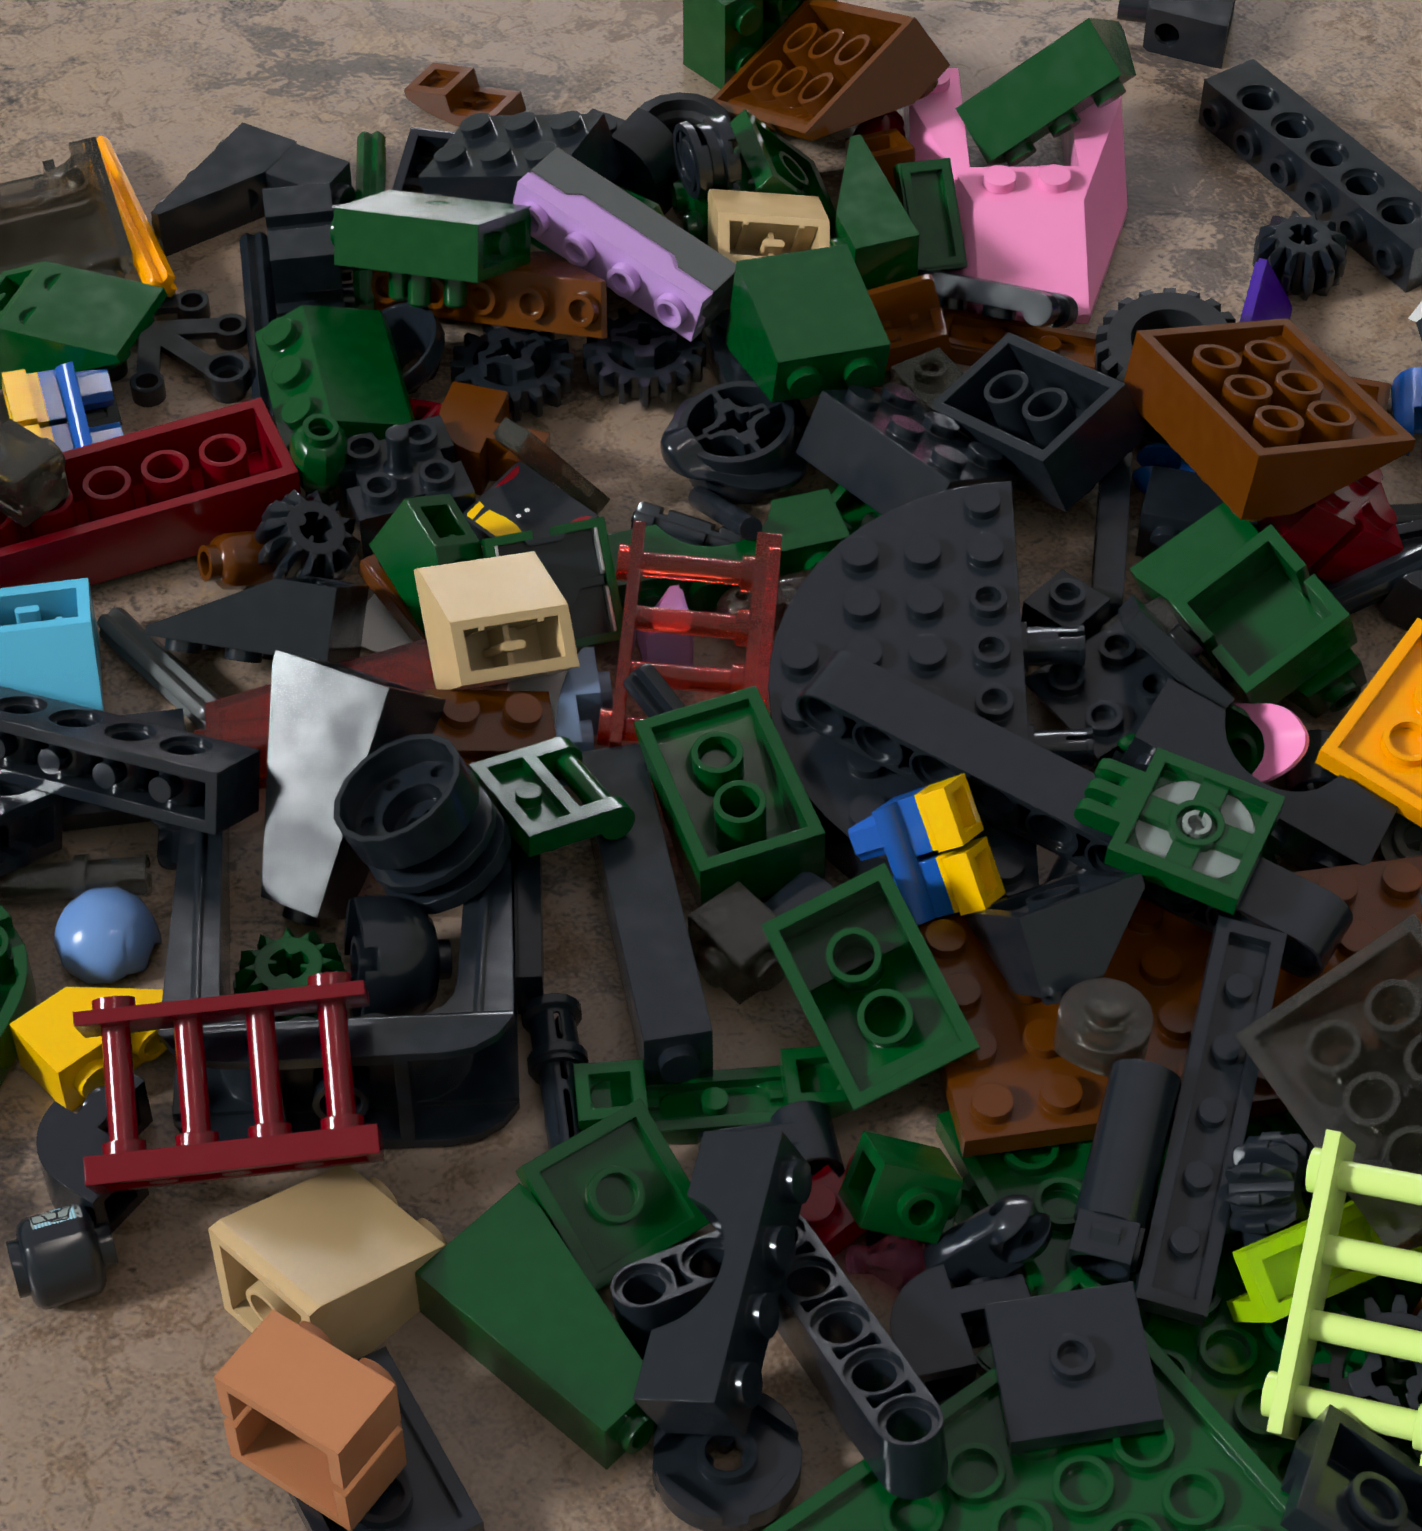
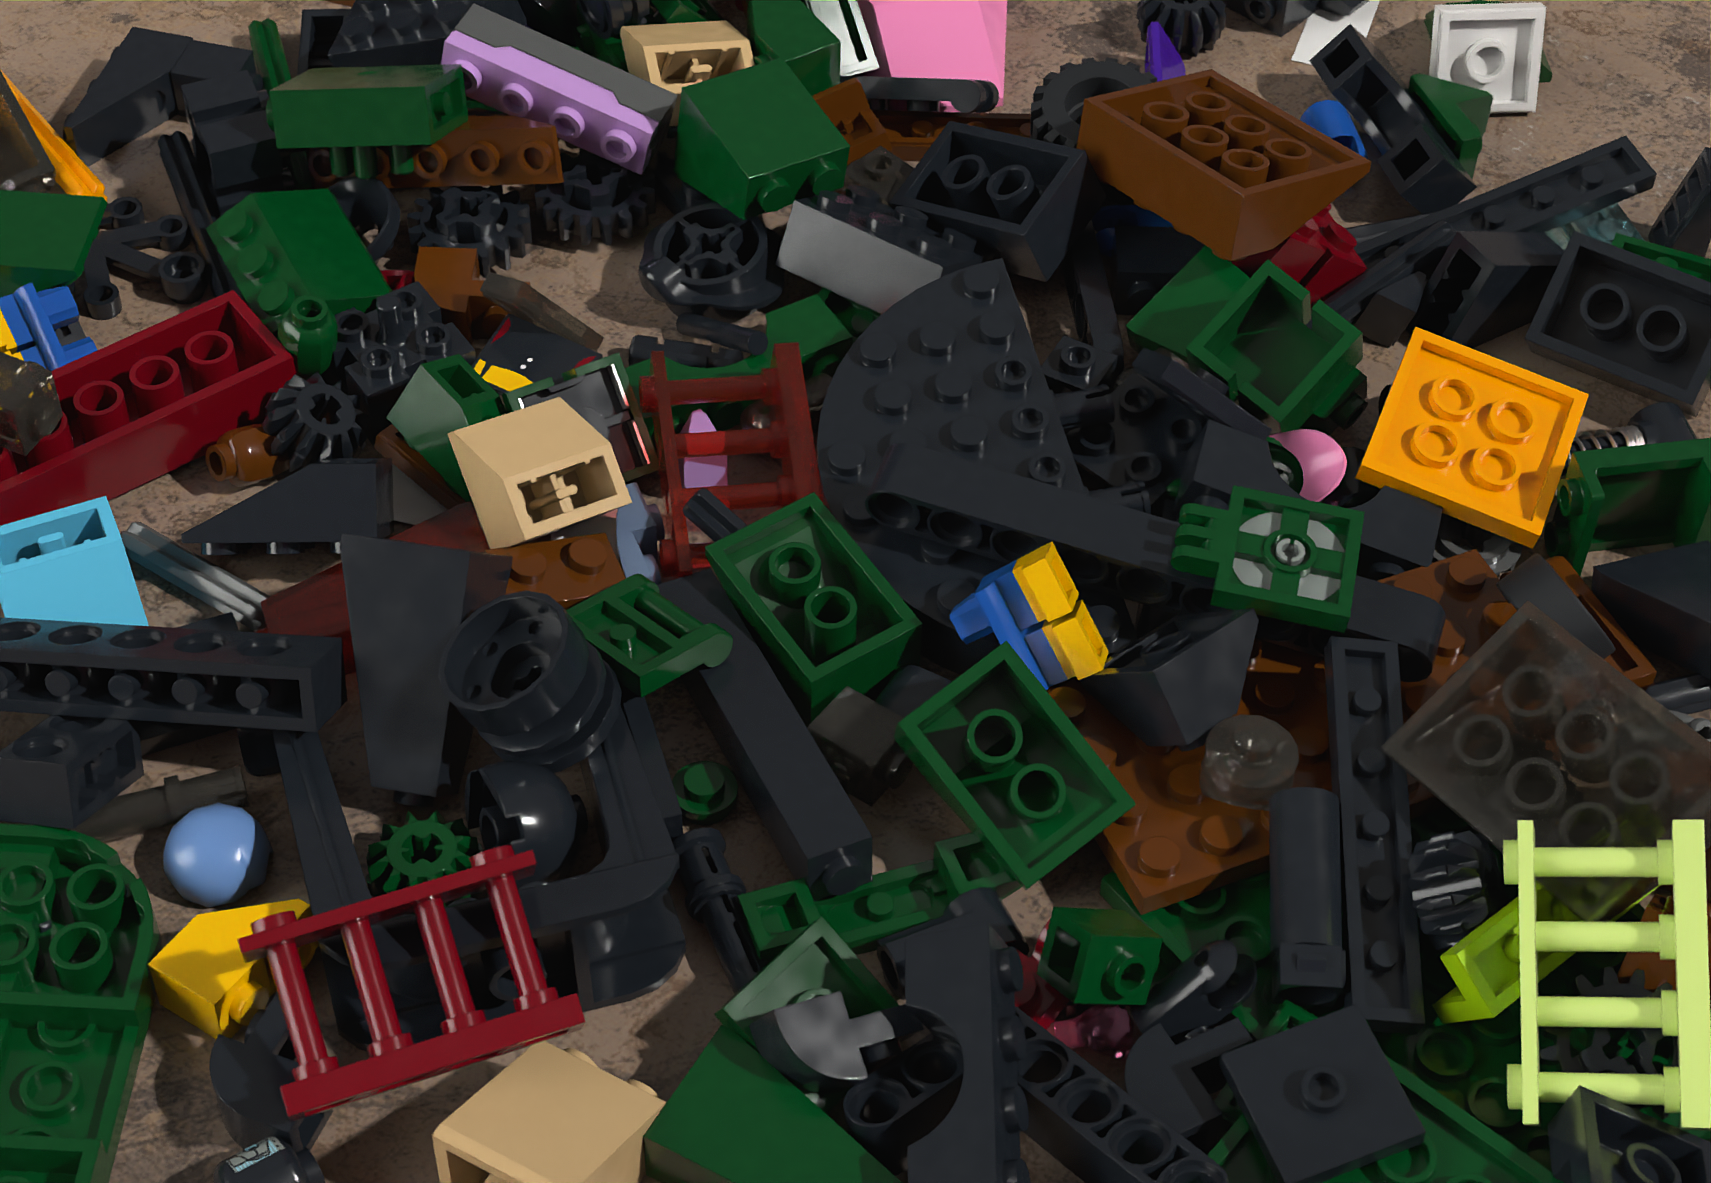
camera: 15 degrees left, 0 degrees up
(578, 960) = (705, 792): none -> dark green plate
(603, 1221) = (826, 1050): none -> black brick

